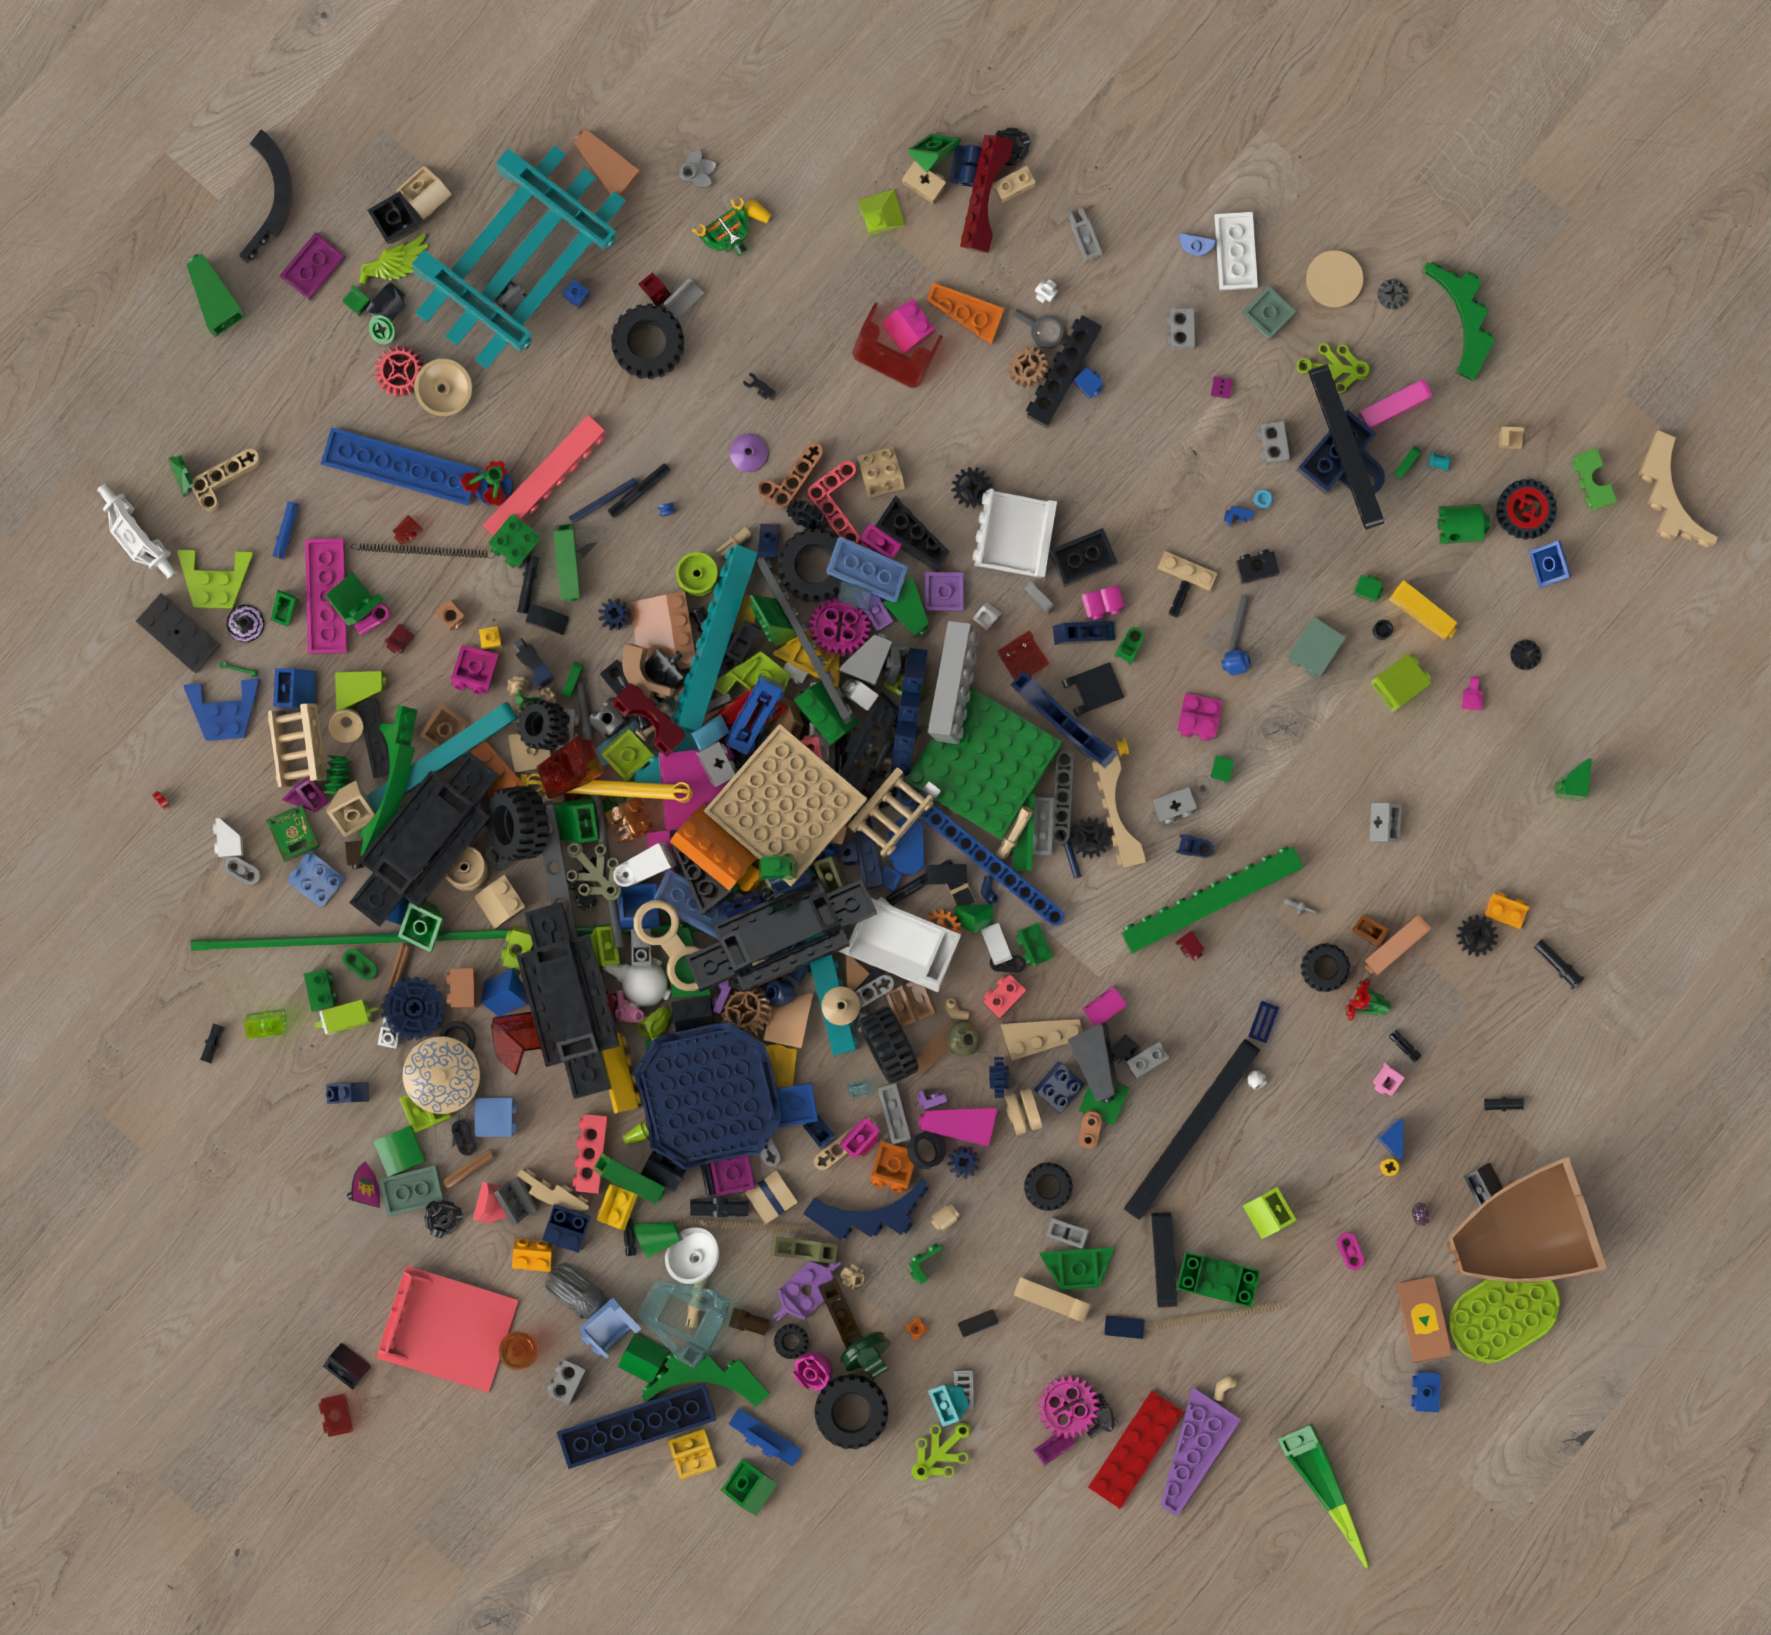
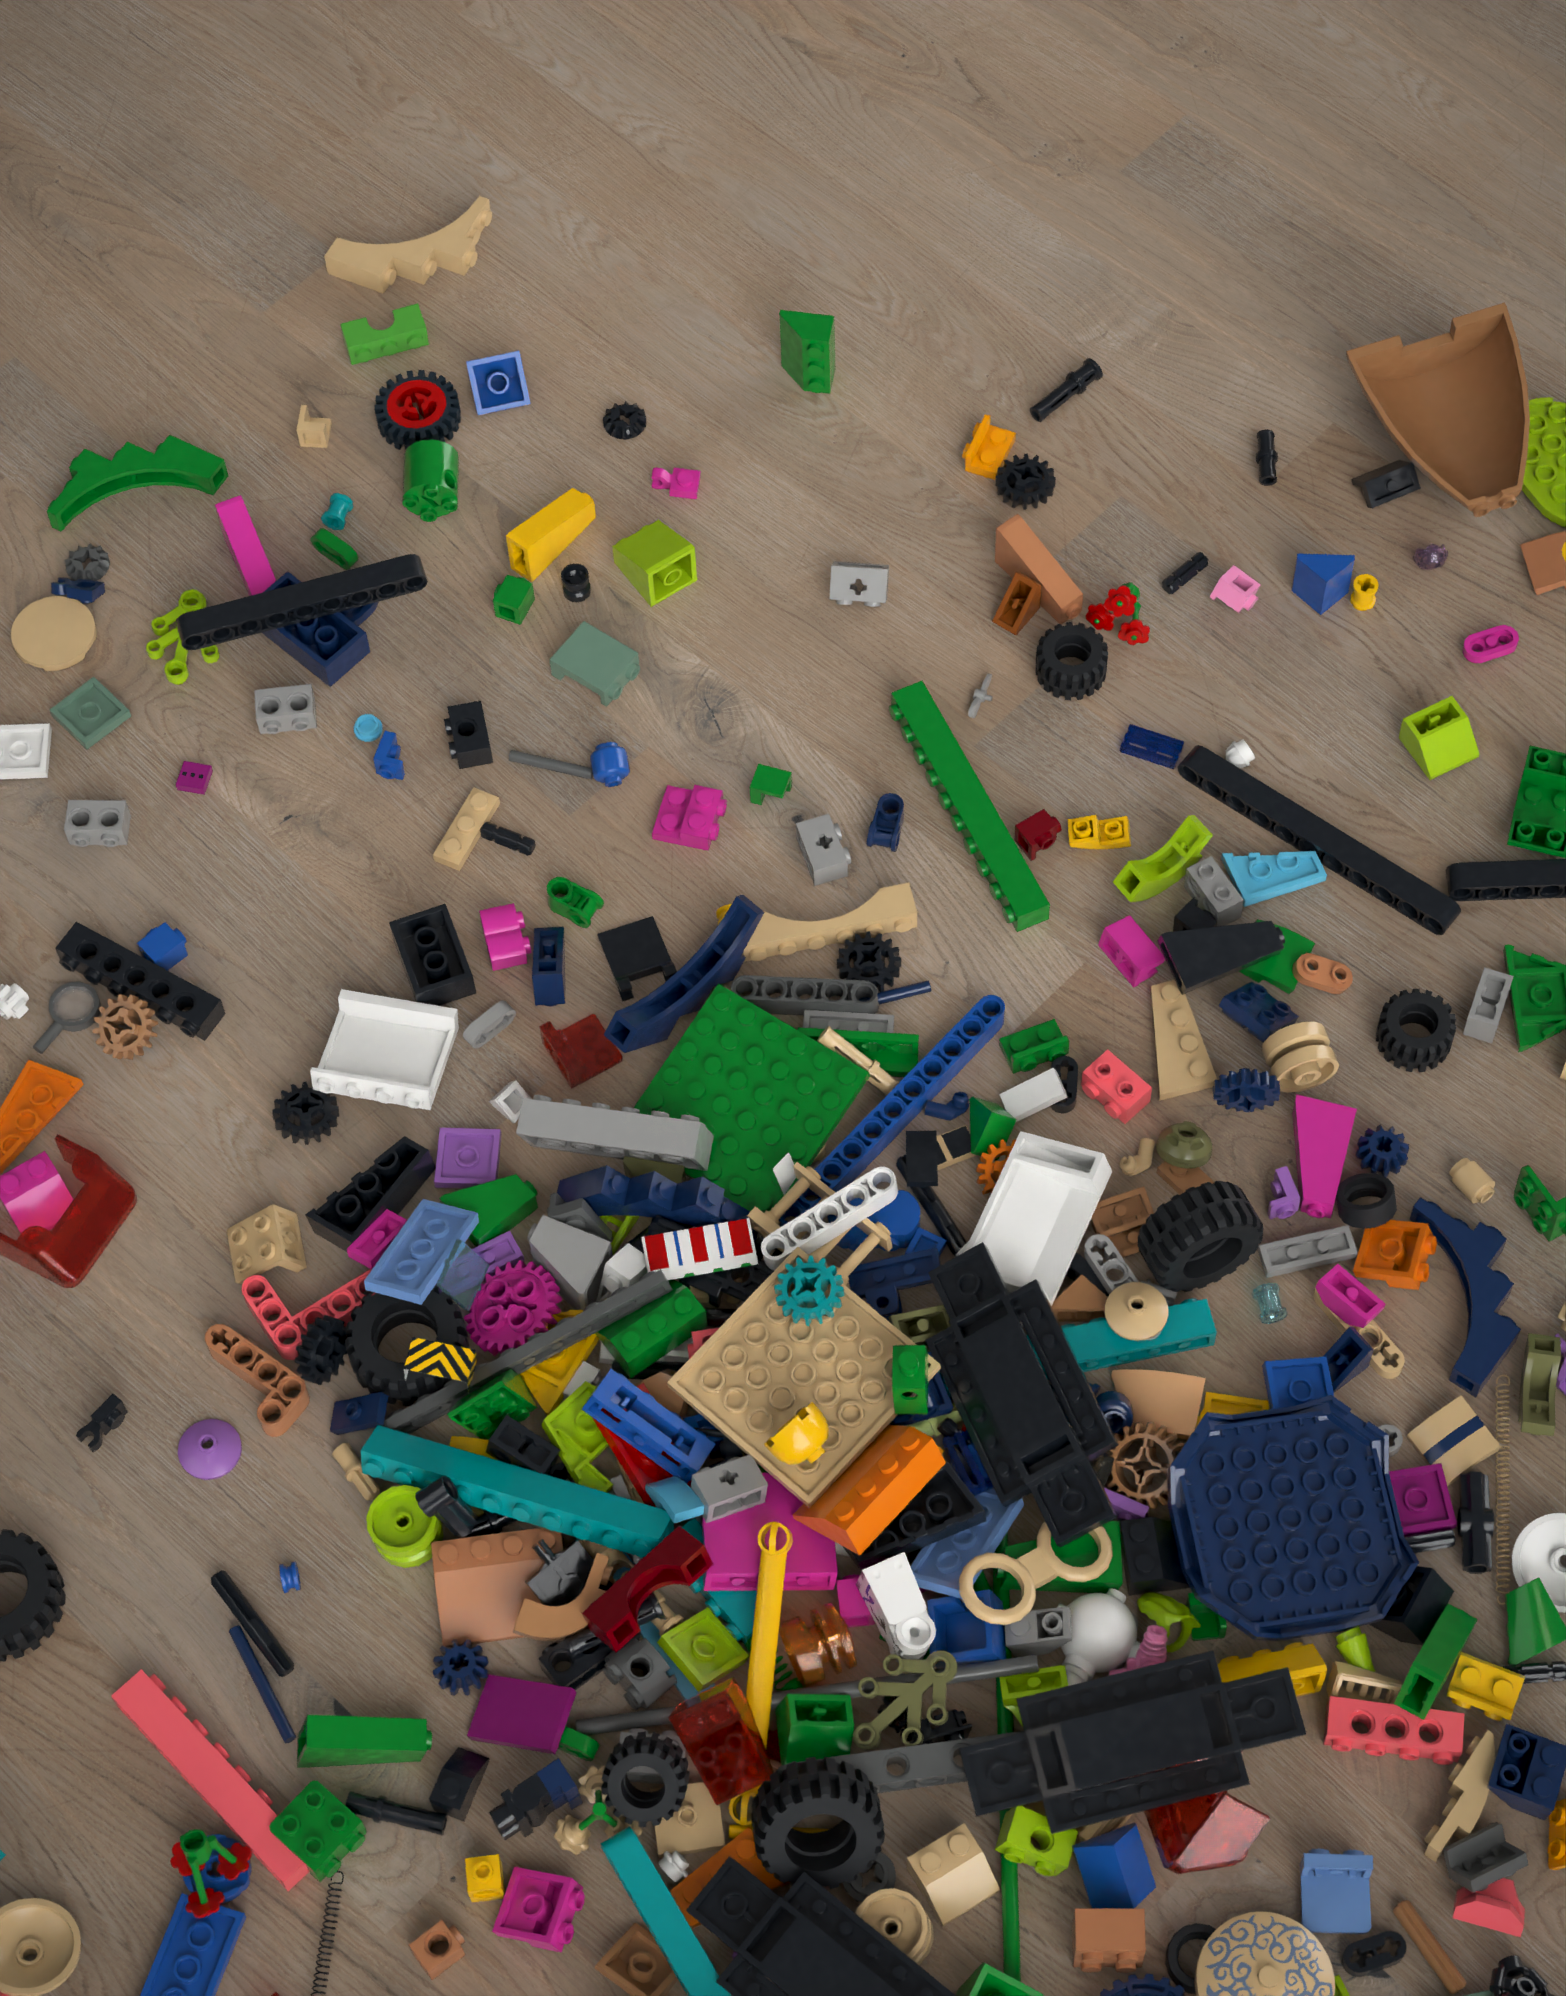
camera: 85 degrees left, 25 degrees down
(501, 744) = (674, 1865): none -> white plate
(585, 652) = (522, 1714): none -> magenta tile
(615, 1136) = (1353, 1674): none -> tan slope
(704, 596) = (443, 1501): none -> black piece
(739, 804) = (800, 1437): none -> yellow cylinder
(789, 587) = (441, 1360): none -> sticker
(840, 799) = (811, 1277): none -> teal gear
(873, 739) = (701, 1249): none -> sticker
(887, 808) = (835, 1205): none -> white beam
(1164, 1098) = (1269, 876): none -> medium azure wing
(1165, 1026) = (1159, 871): none -> lime arch
(1194, 986) = (1099, 834): none -> yellow slope
(1367, 293) = (84, 590): none -> dark blue plate

